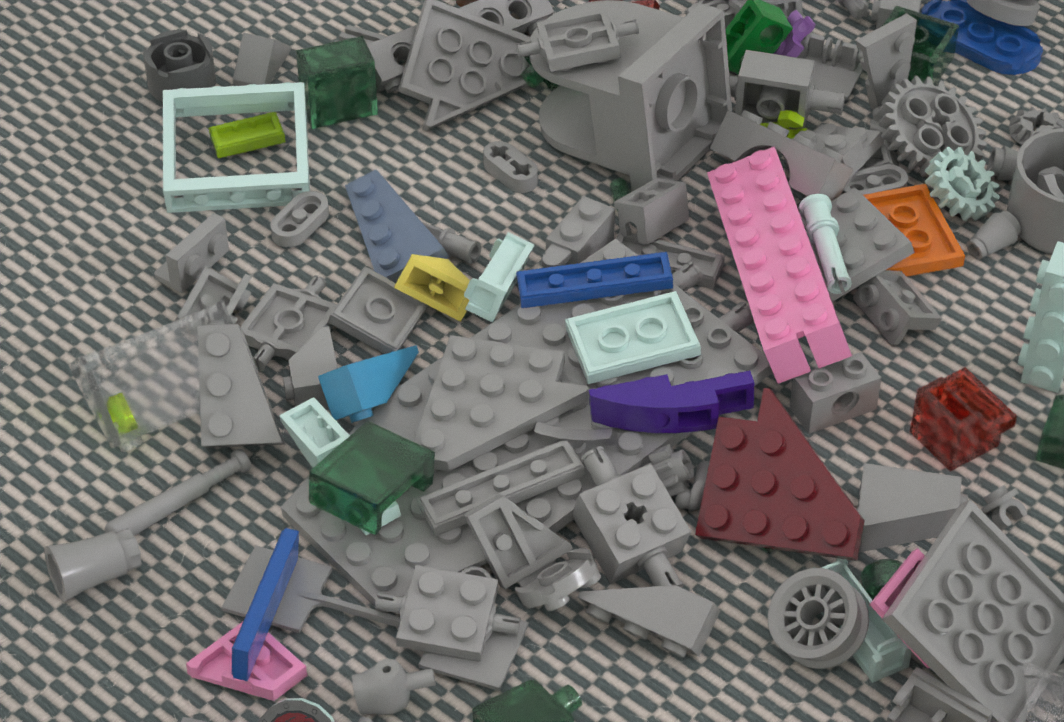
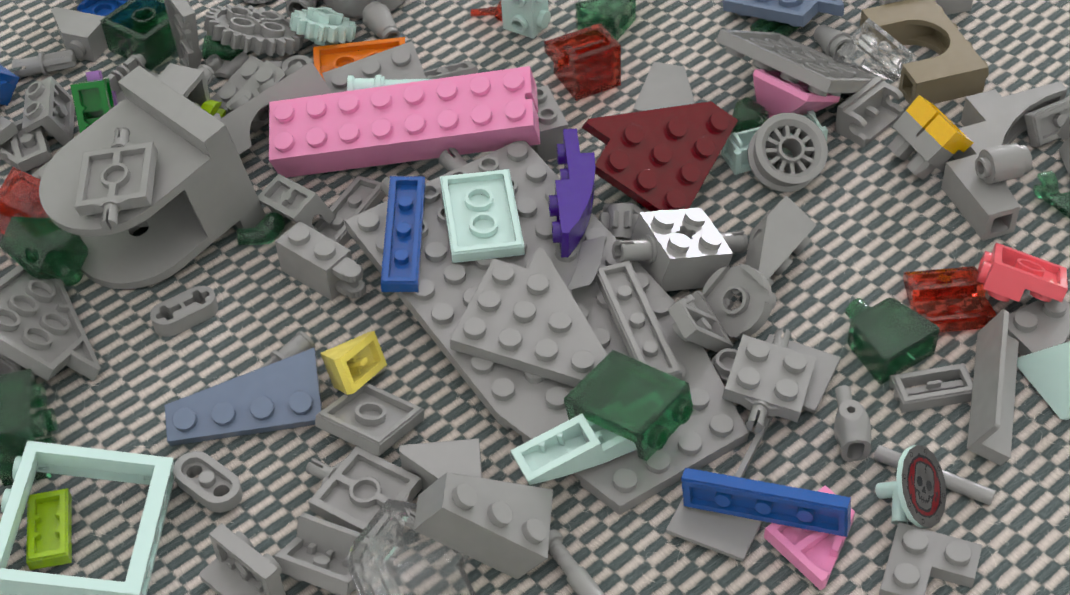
camera: 80 degrees left, 0 degrees up
(365, 384) = (479, 416): dark azure slope -> none
(499, 277) = (364, 309): light aqua container -> none
(999, 502) = (667, 53): light grey plate -> none

